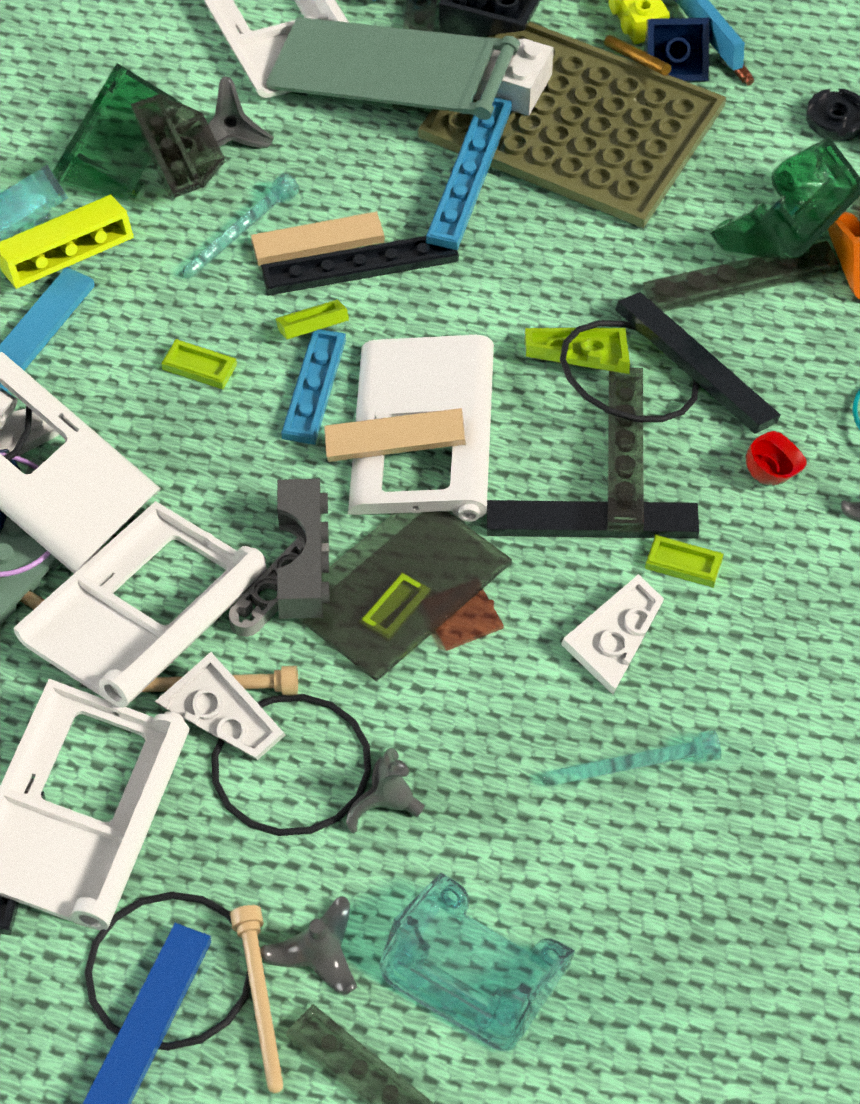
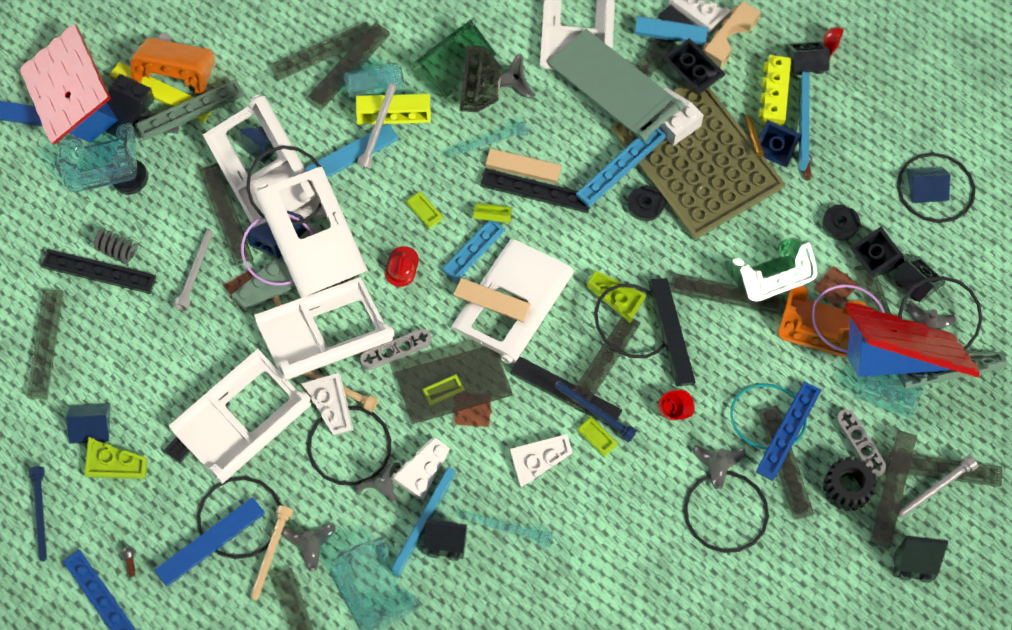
camera: 25 degrees right, 10 degrees up
(60, 332) = (365, 159): none -> light grey piece
(212, 460) = (402, 266): none -> red piece
(300, 582) = (401, 358): dark grey arch -> none
(439, 739) = (421, 470): none -> white wing
(494, 821) = (420, 526): none -> dark azure tile
(538, 208) = (647, 195): none -> black plate
(549, 823) = (445, 539): none -> black slope
(727, 530) = (626, 432): none -> dark blue piece

